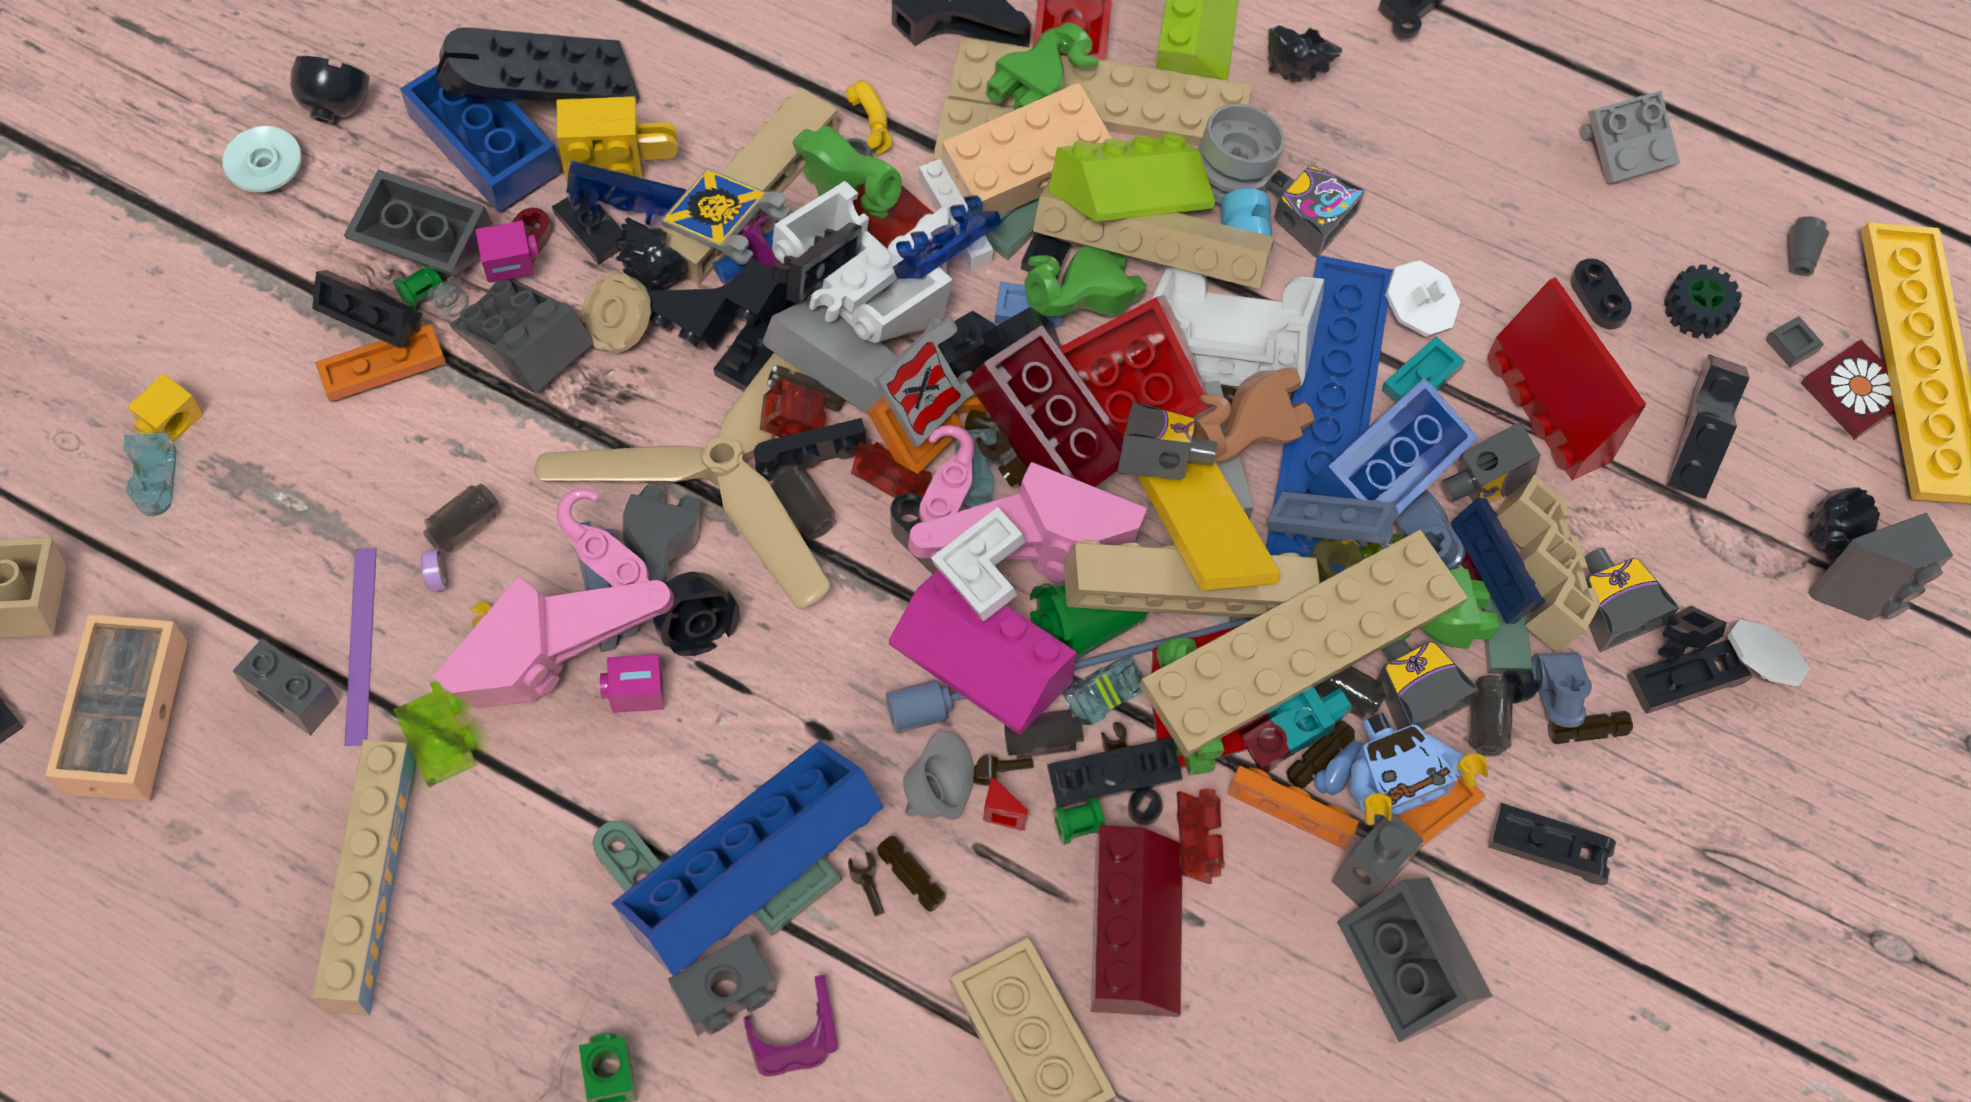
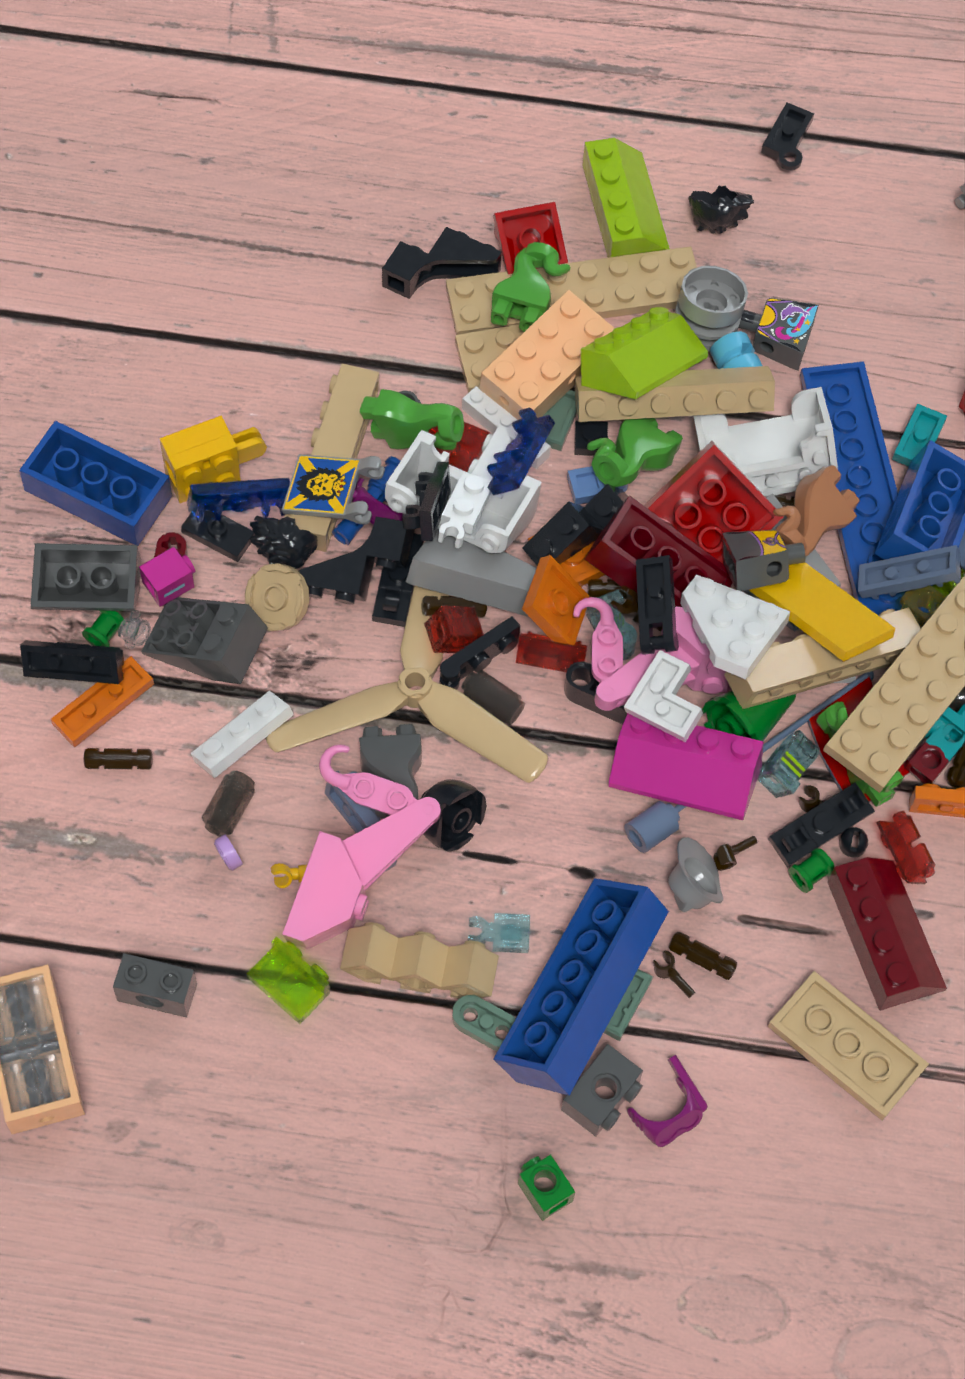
camera: 20 degrees left, 0 degrees up
(360, 647) = (193, 934): medium lavender sticker -> none
(365, 878) = (290, 1109): tan brick -> none
(369, 429) = (117, 758): none -> dark brown axle
(512, 448) = (242, 734): none -> white plate
(532, 66) = (122, 417): black plate -> none
(584, 764) = (419, 962): none -> tan brick
(633, 683) = (427, 885): dark pink brick -> none
(697, 769) = (507, 933): none -> clear light blue plate
(864, 93) = (391, 351): yellow arm -> none
(922, 385) = (554, 573): flag -> none
(1003, 808) = (752, 880): red slope -> none
(1016, 455) = (656, 604): none -> black plate
(1047, 735) = (762, 812): clear smoke head -> none
(1092, 506) = (732, 624): none -> white plate
(1422, 298) = (893, 376): white piece -> none

